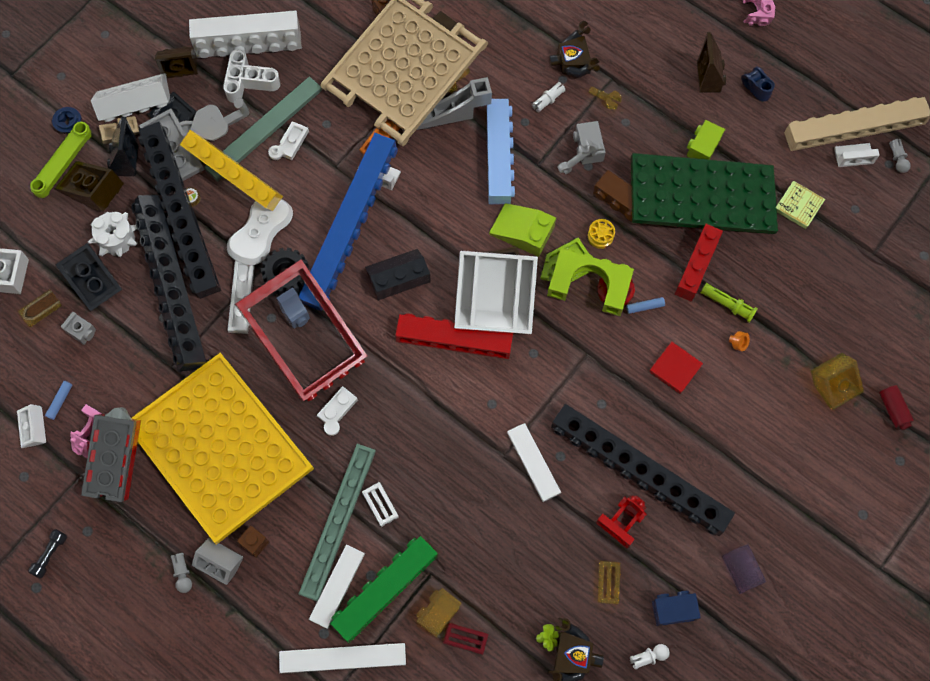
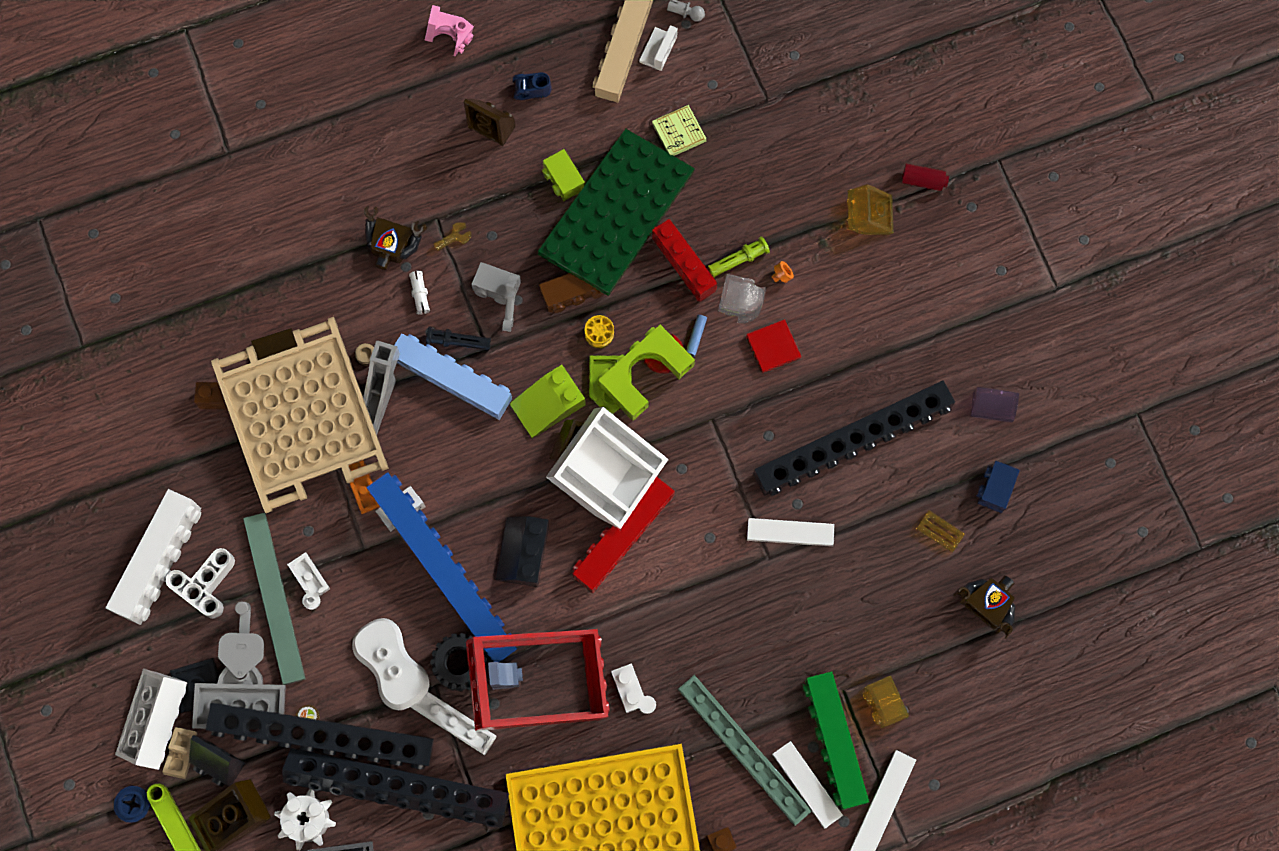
camera: 60 degrees left, 5 degrees up
(177, 62) = (137, 647): dark brown slope -> none
(231, 170) = (312, 657): yellow brick -> none
(388, 519) = (769, 700): white tile -> none
(467, 639) = (908, 704): dark red tile -> none
(526, 133) = (447, 338): none -> black pin
(548, 637) = (961, 615): lime plant -> none
(634, 508) = (884, 467): red tile -> none
(660, 652) = (1028, 524): white pin -> none
(695, 319) = (741, 298): none -> clear brick

